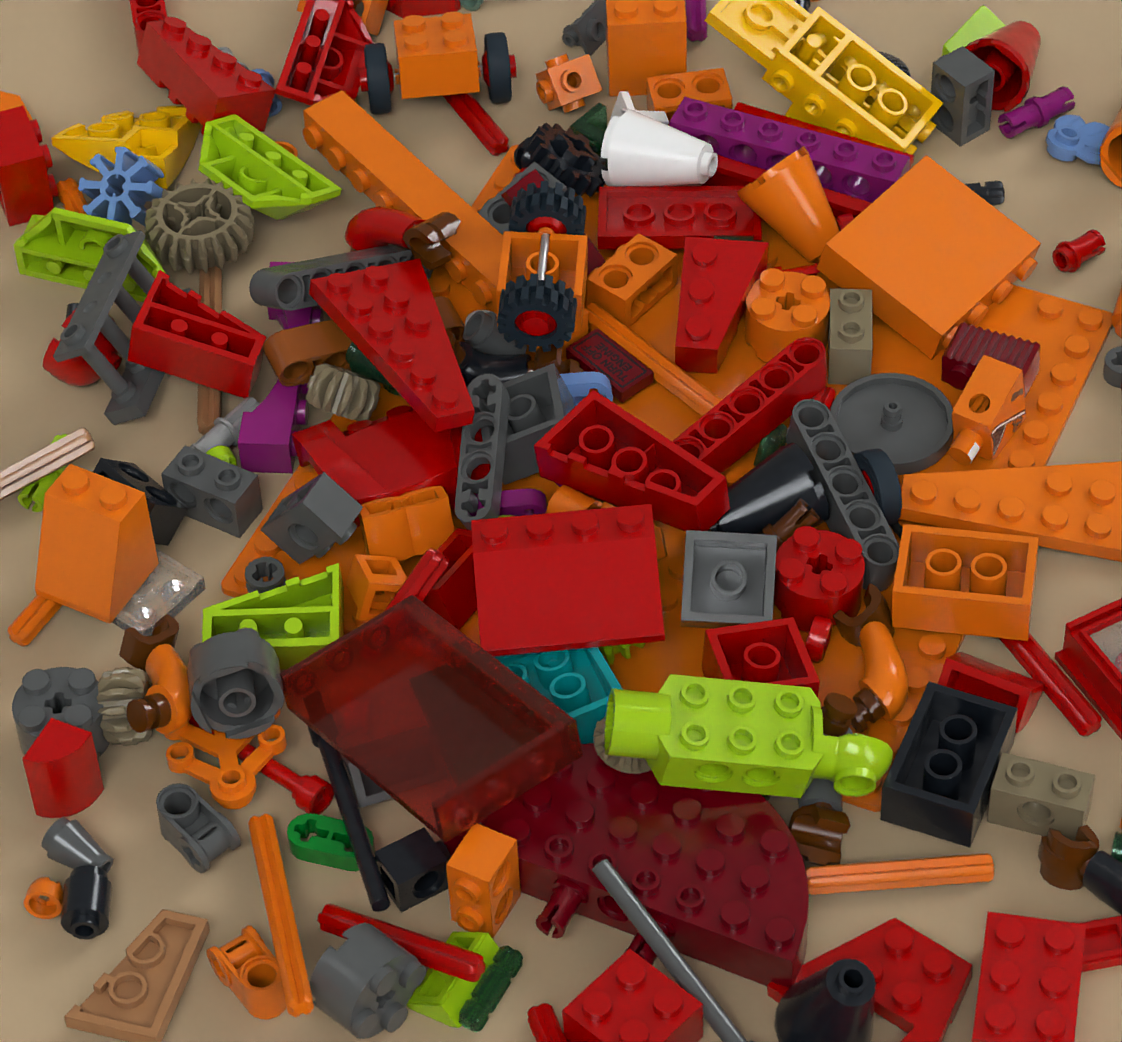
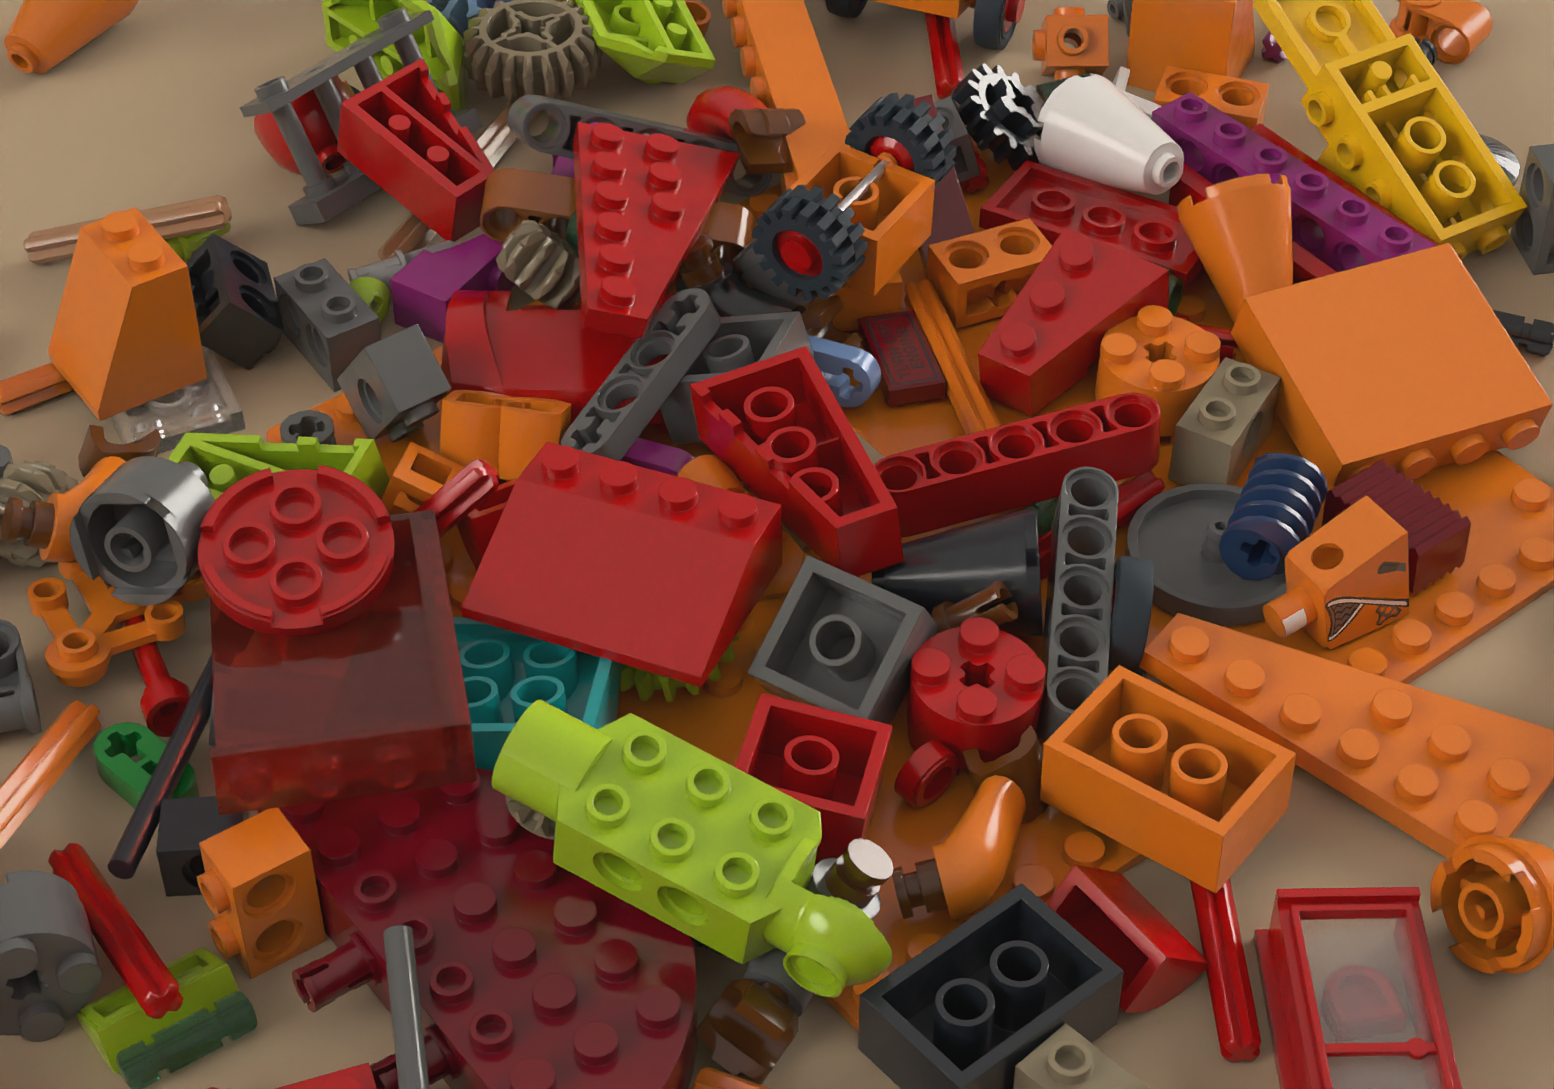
camera: 25 degrees right, 5 degrees down
(348, 657) = (296, 550): none -> red tile
(923, 386) = (1272, 515): none -> dark blue piece

